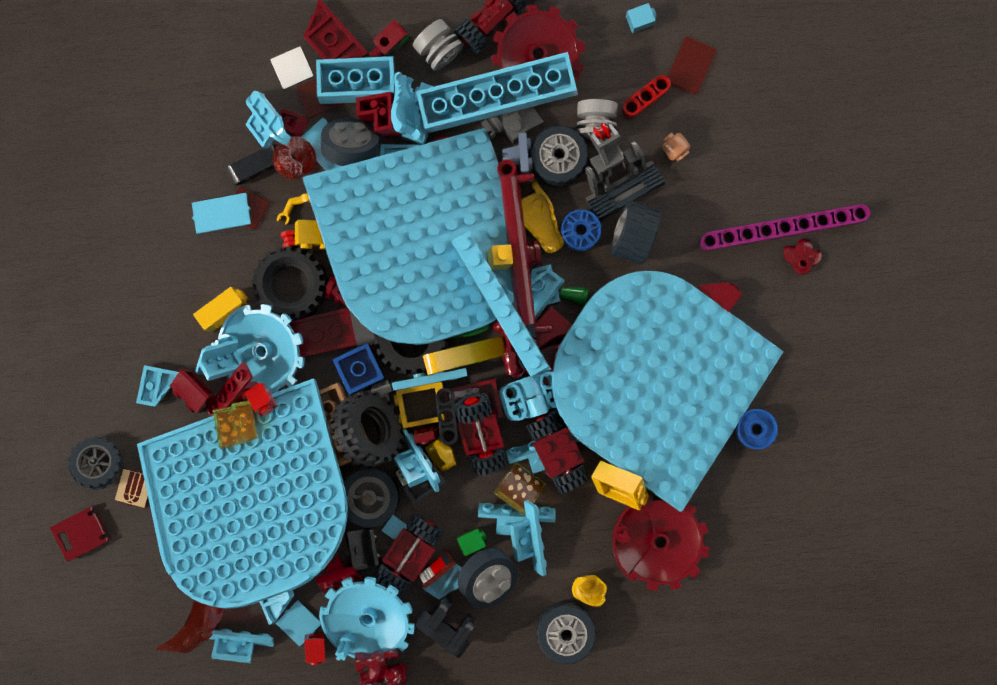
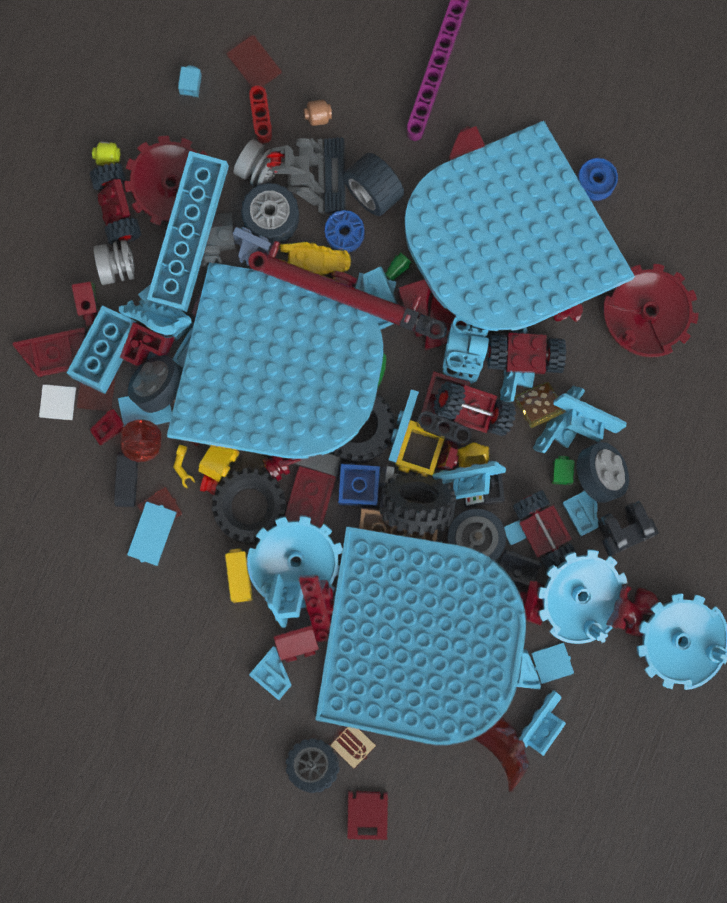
camera: 65 degrees left, 5 degrees down
(235, 424) = (349, 617): clear yellow slope -> none
(261, 399) = (340, 581): red brick -> none
(265, 121) = (94, 447): medium azure plate -> none
(315, 648) = (583, 658): red brick -> none
(436, 569) = (571, 513): slope -> none
(464, 355) = (399, 385): yellow beam -> none
(500, 257) = (332, 307): yellow brick -> none
(501, 305) = (375, 325): medium azure brick -> none
(511, 357) = (423, 346): dark red piece -> none
(567, 648) = (698, 425): wheel -> none
(589, 590) = (659, 393): yellow hair -> none
(620, 485) = (584, 315): yellow window -> none
(802, 253) = (469, 59): dark red plate -> none

